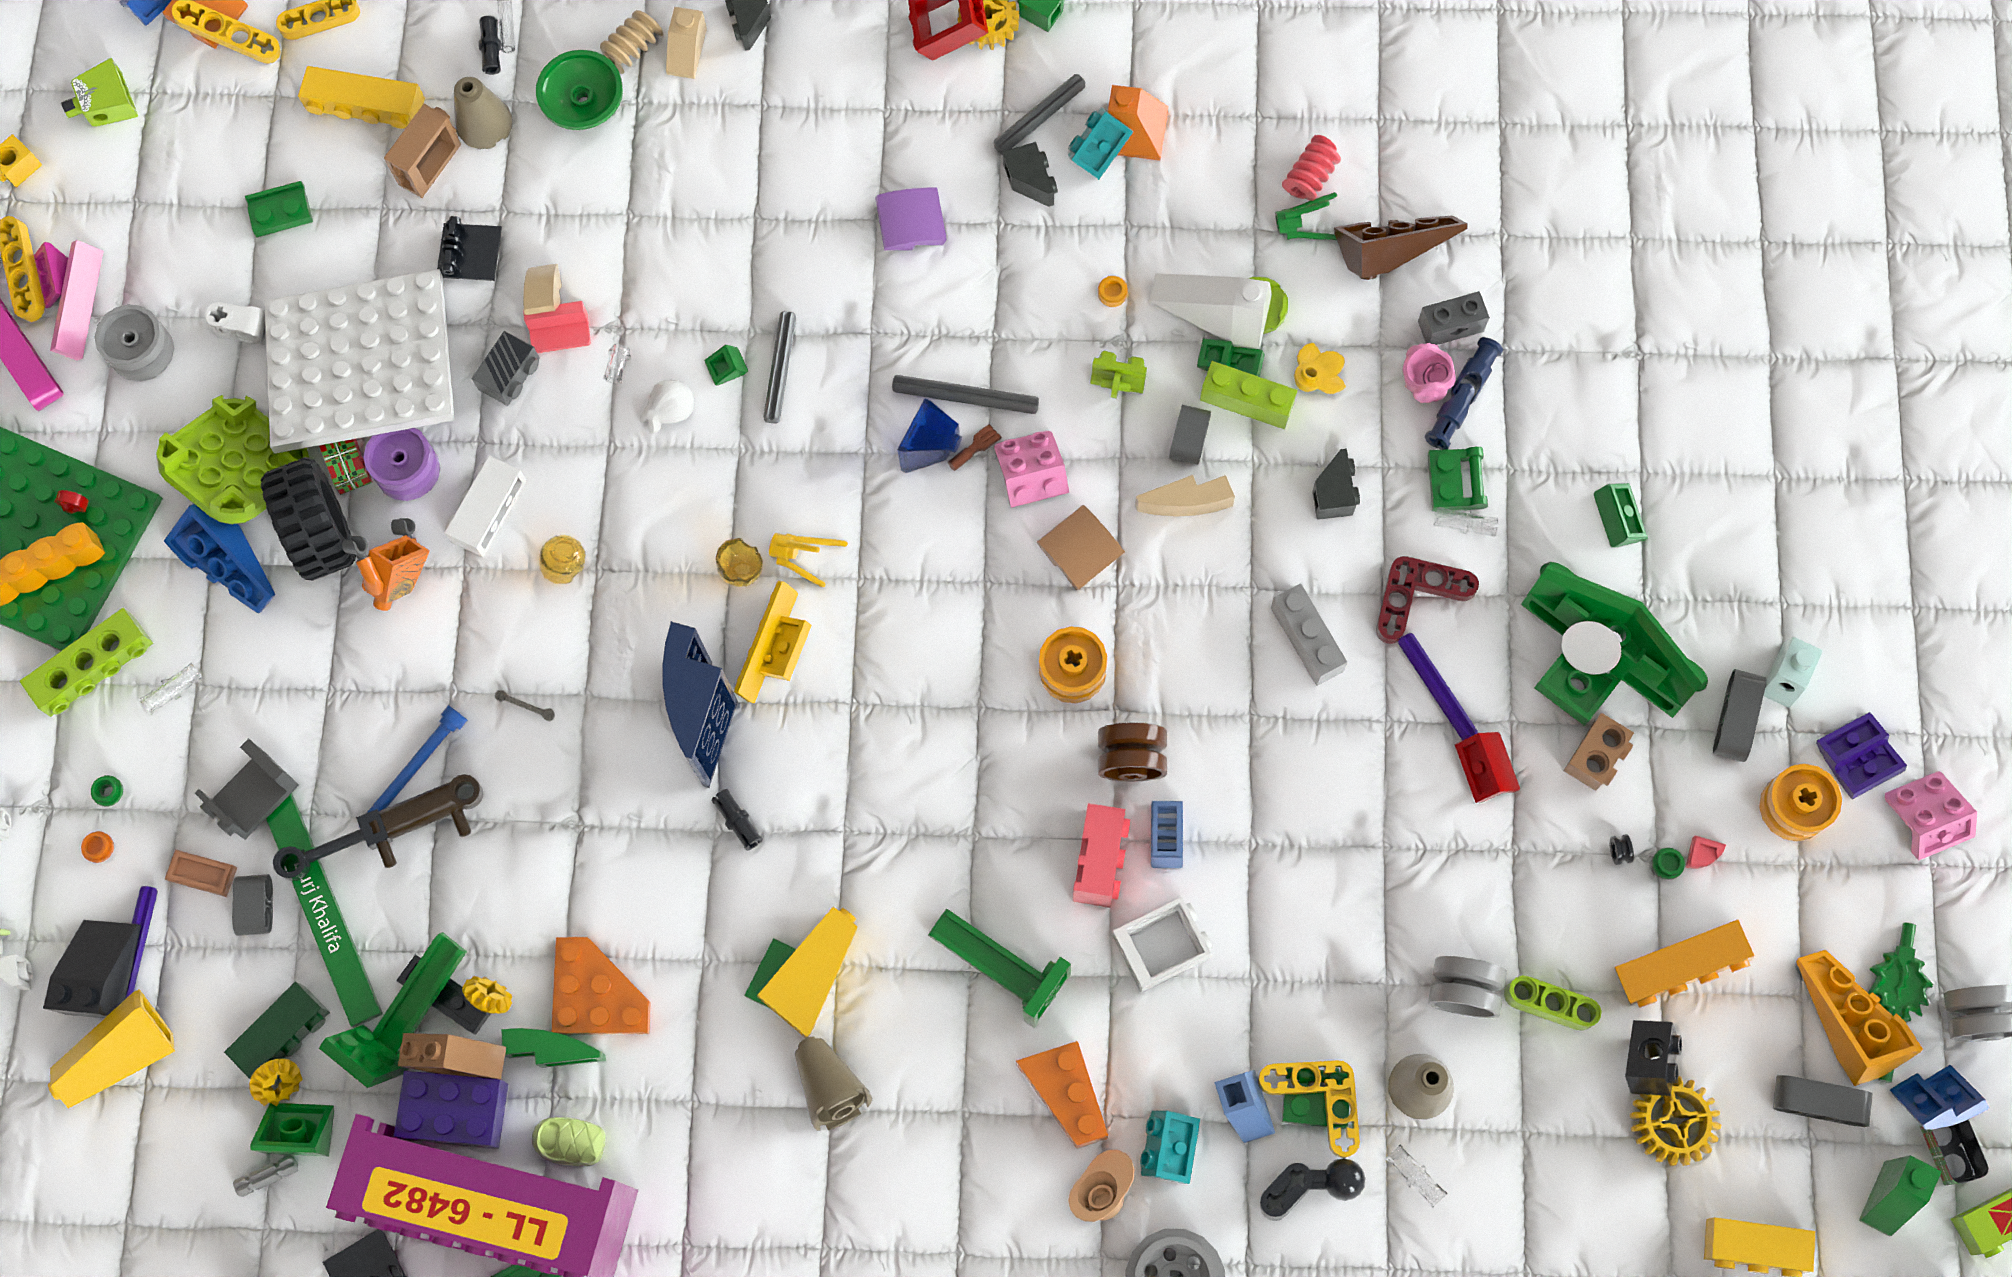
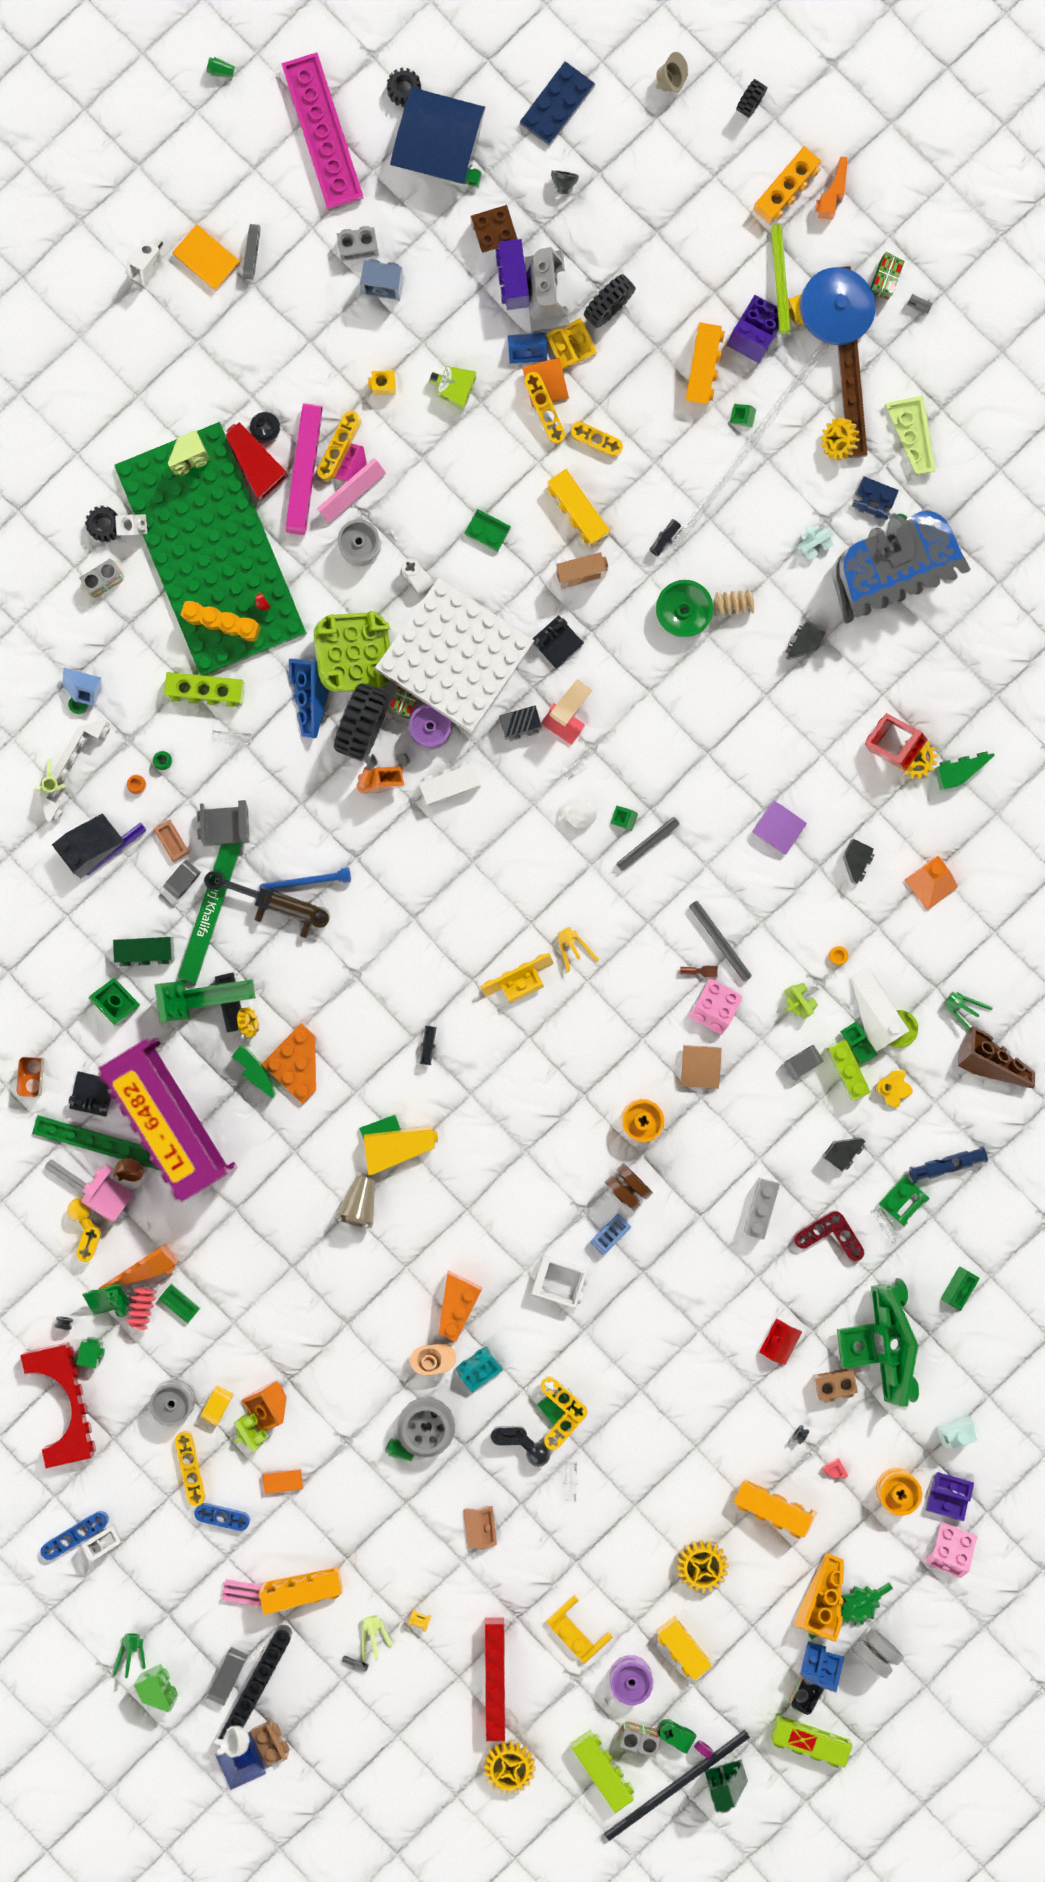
camera: 40 degrees right, 15 degrees up
(113, 1050) = (65, 892): yellow slope -> none
(265, 1076) = (124, 973): yellow gear -> none
(265, 1175) = (84, 1009): light grey axle -> none
(451, 1055) = (208, 1039): medium nougat window -> none
(451, 1109) = (188, 1058): dark purple brick -> none
(480, 114) = (625, 575): dark tan cone -> none
(548, 714) = (389, 913): clear smoke hinge -> none
(561, 559) = (461, 843): clear yellow hair -> none
(569, 1141) = (227, 1118): yellowish green piece -> none
(685, 42) = (758, 629): tan slope -> none
(696, 700) = (455, 982): dark blue slope -> none
(738, 563) = (539, 926): clear yellow hair -> none
(928, 438) = (682, 951): clear blue slope -> none
(1034, 988) = (487, 1251): green bracket -> none
(1039, 113) = (893, 831): dark grey axle -> none
(1099, 142) = (904, 876): teal bracket -> none
(1100, 855) = (571, 1217): coral wedge -> none
(1187, 498) = (772, 1091): tan slope -> none
(1245, 1106) = (527, 1383): medium blue slope -> none
(1312, 168) = (991, 987): coral piece -> none
(1413, 1093) = (610, 1447): dark tan cone -> none
(1428, 372) = (941, 1140): bright pink hair -> none
(1437, 686) = (795, 1286): dark purple axle -> none
(1453, 319) = (980, 1125): dark grey brick -> none
(1467, 986) = (673, 1427): light grey wheel -> none
(1568, 1001) = (708, 1475): lime beam -> none
(1591, 647) = (878, 1339): white sticker -> none
(1648, 1041) = (724, 1524): black brick -> none
(1668, 863) = (815, 1459): green plate -> none
(1739, 715) = (914, 1428): dark grey beam -> none
(1822, 1101) = (773, 1618): dark grey beam -> none
(1899, 1193) = (762, 1686): green slope -> none

